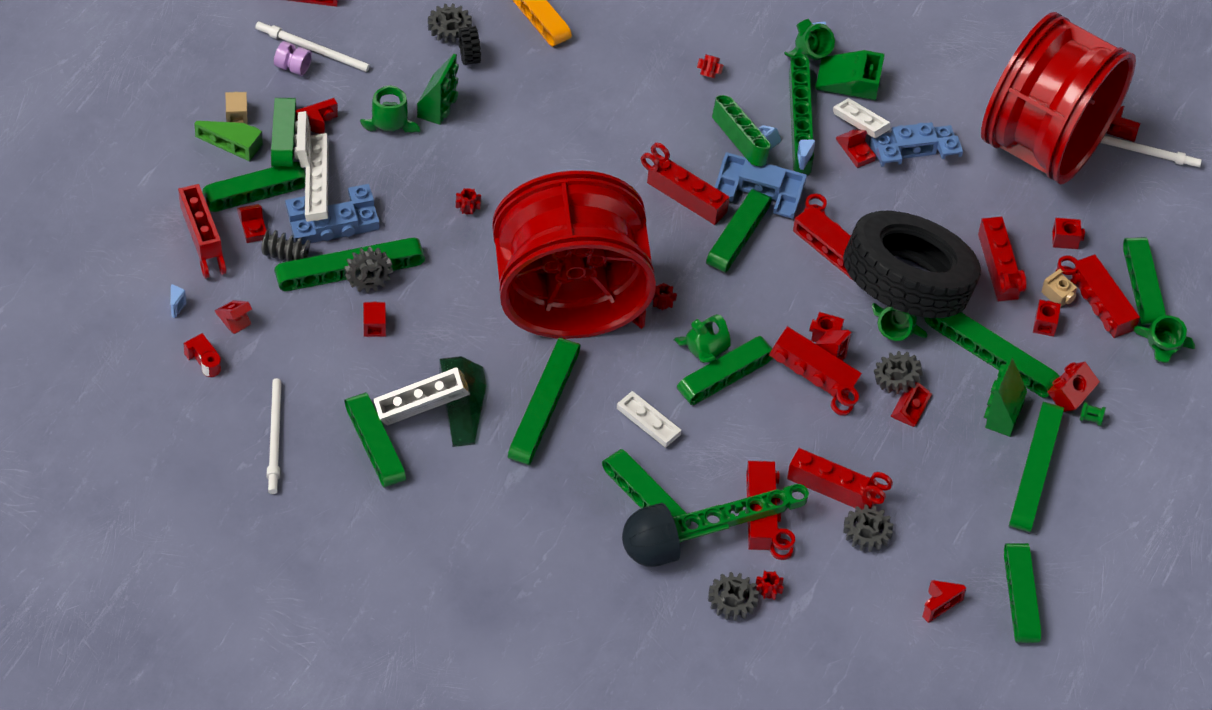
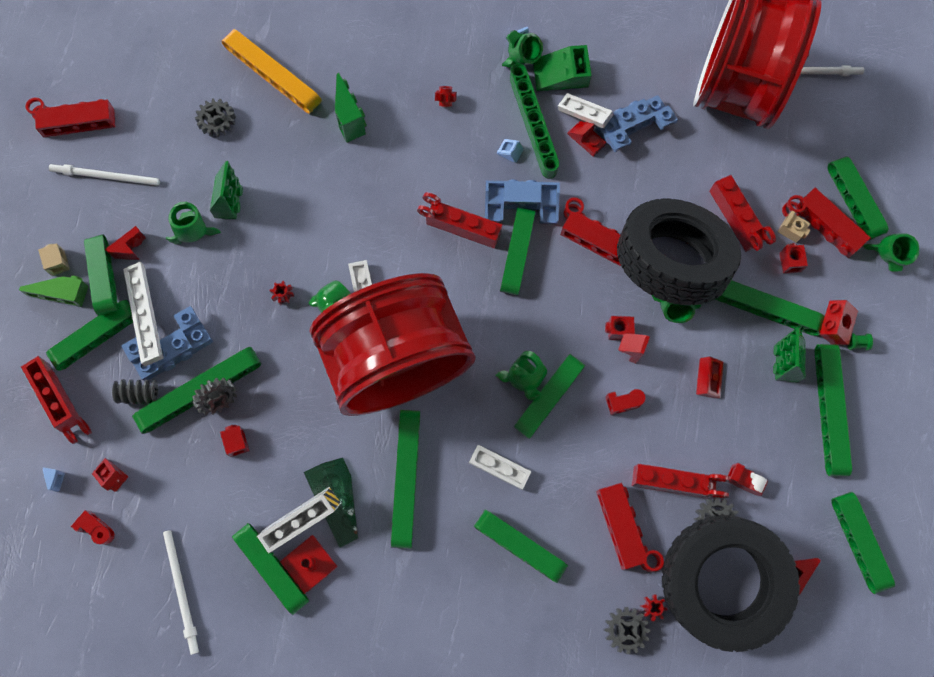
camera: 15 degrees left, 20 degrees up
(252, 222) = (100, 371): red slope -> none
(290, 58) = (89, 194): lavender wheel -> none
(302, 139) = (119, 278): white plate -> none
(417, 449) = (309, 564): none -> red tile
(469, 45) = (238, 136): black tyre -> none
(596, 52) = (348, 115): none -> green slope
(655, 536) = (543, 600): piece -> none
(664, 296) = (475, 332): red gear -> none
(741, 130) = (492, 155): green beam -> none
(805, 151) = (551, 162): light blue slope -> none
(807, 398) = (625, 402): none -> red leg
(818, 367) = (627, 371): red hinge -> none
(868, 525) = (777, 590): none -> black tyre
(898, 372) = (688, 360): dark grey gear -> none
(914, 502) = (747, 479): none -> red leg
(1067, 233) = (776, 173): red brick -> none

